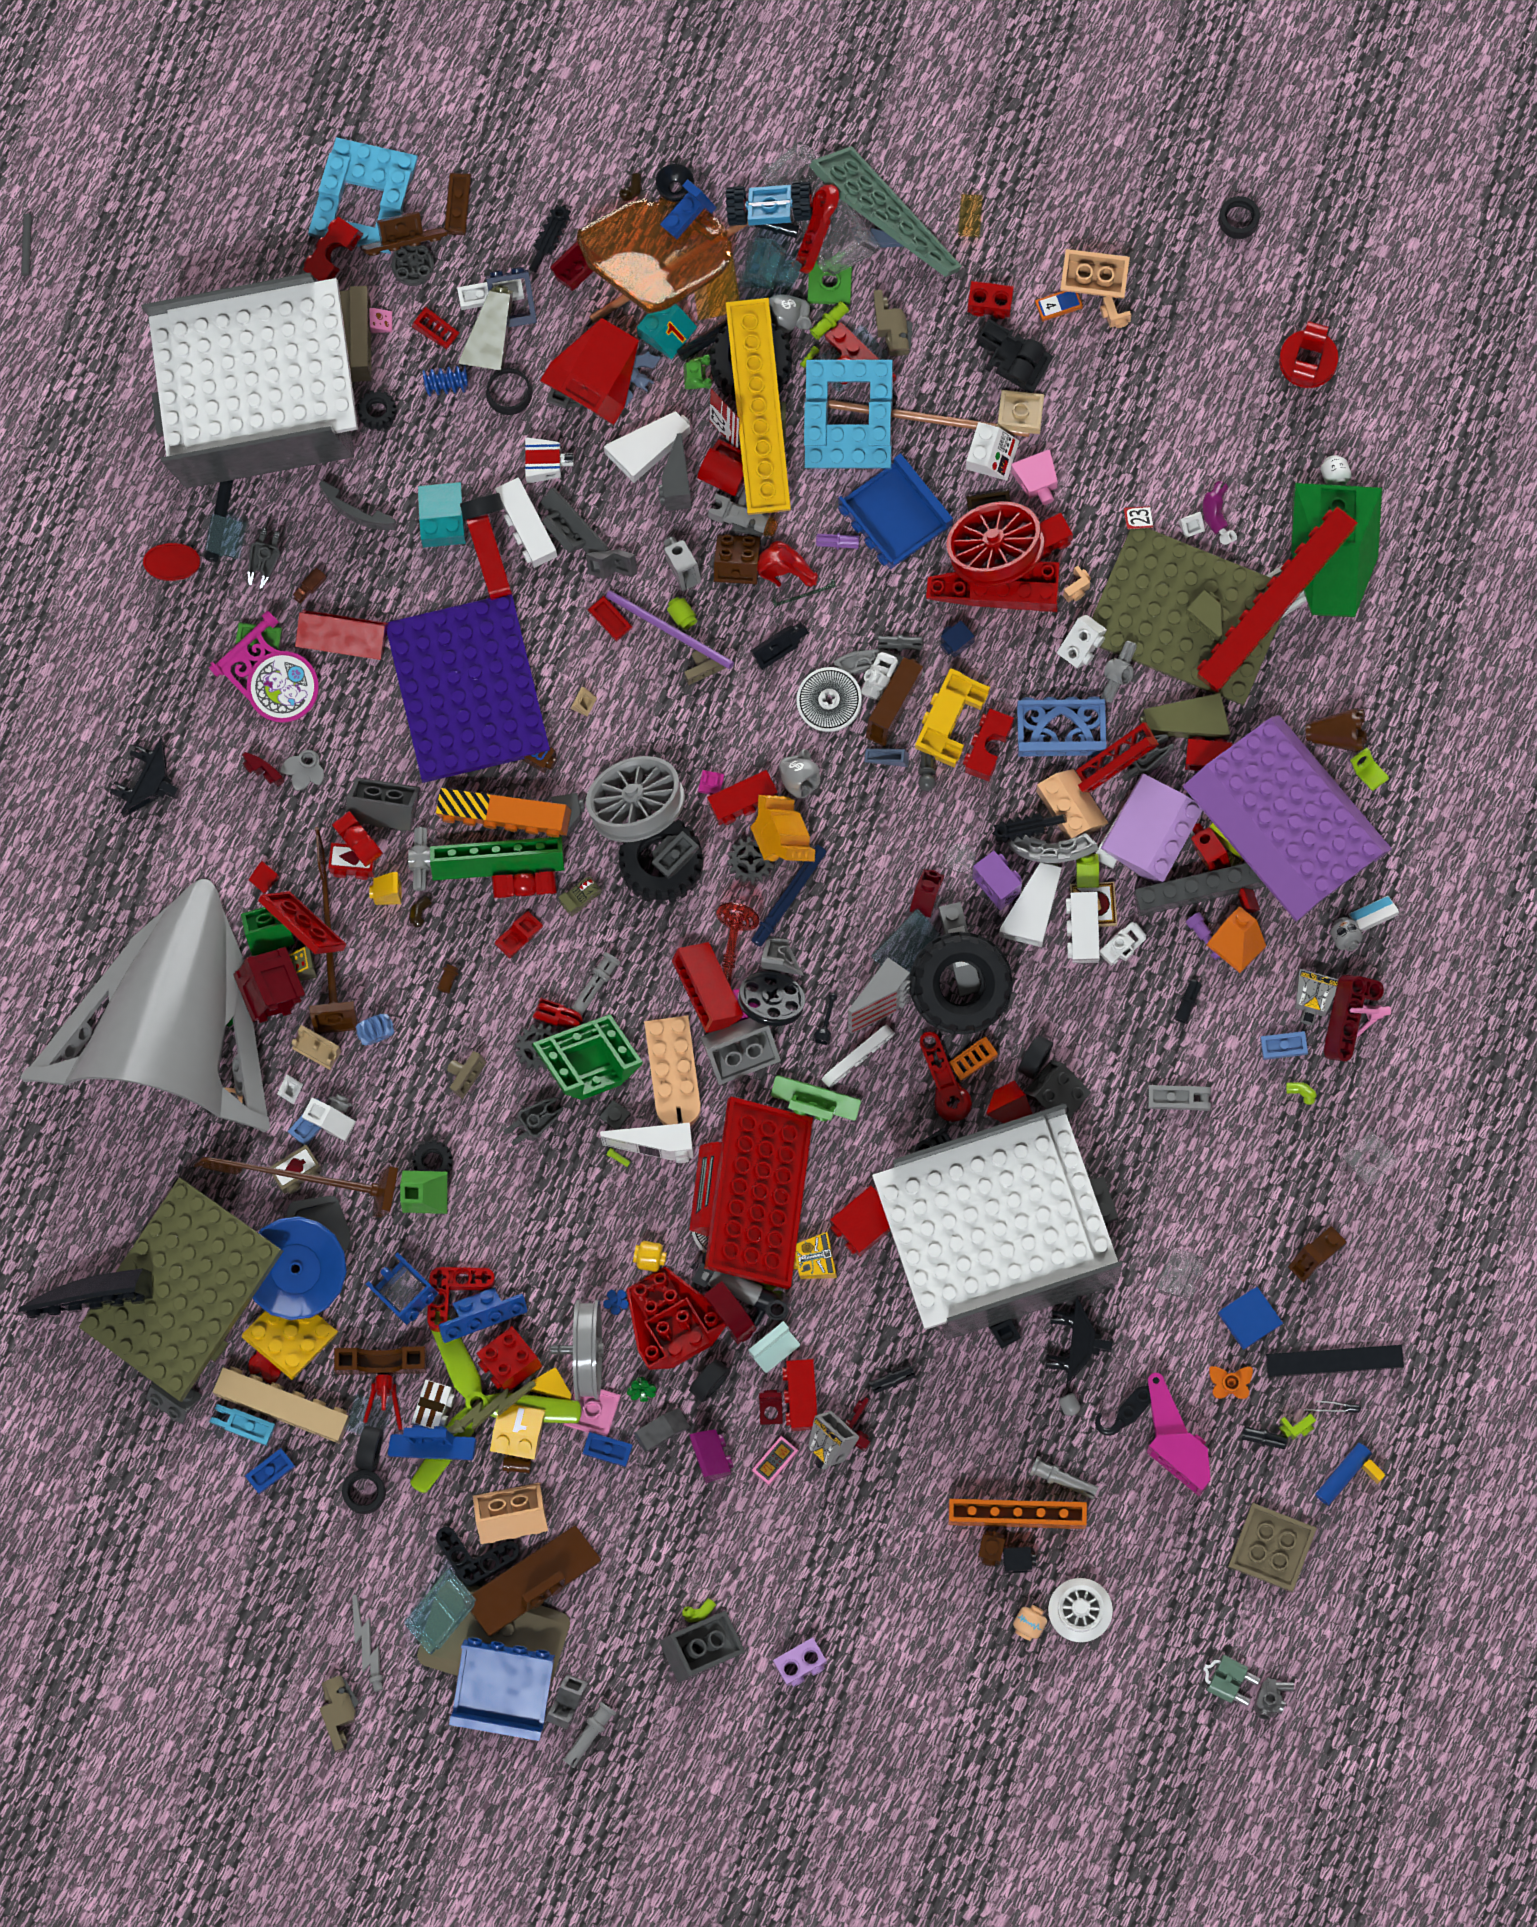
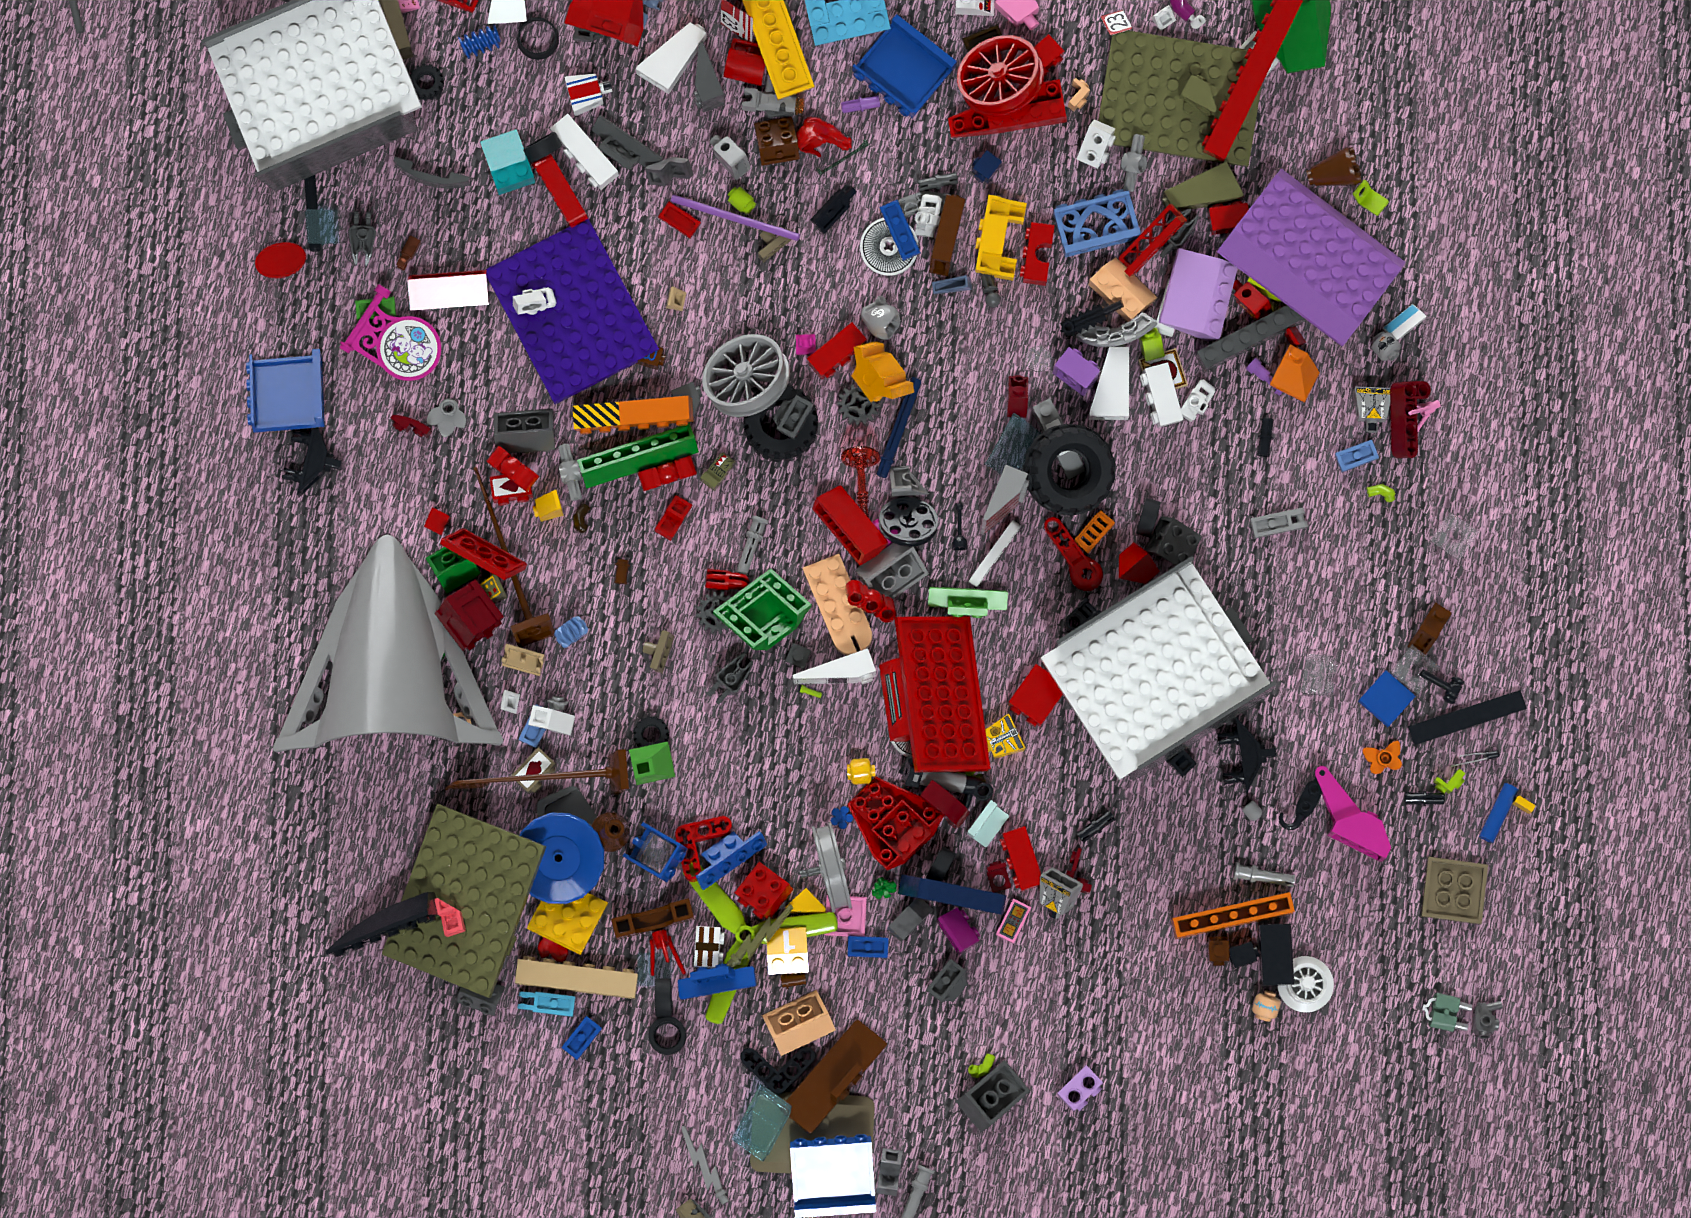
camera: 20 degrees left, 5 degrees up
(138, 702) = (285, 393): none -> panel
(161, 1304) = (451, 918): none -> coral slope
(362, 1265) = (611, 841): none -> reddish brown cone
(428, 666) = (533, 300): none -> white piece
(685, 1510) = (948, 982): none -> dark grey slope
(707, 1073) = (870, 601): none -> red piece
(714, 1414) = (952, 894): none -> dark blue beam
(844, 684) = (900, 230): none -> blue tile
(1054, 1568) = (1276, 955): none -> black slope
(1303, 1293) = (1414, 657): none -> clear piece
(1326, 1324) = (1452, 688): none -> black piece

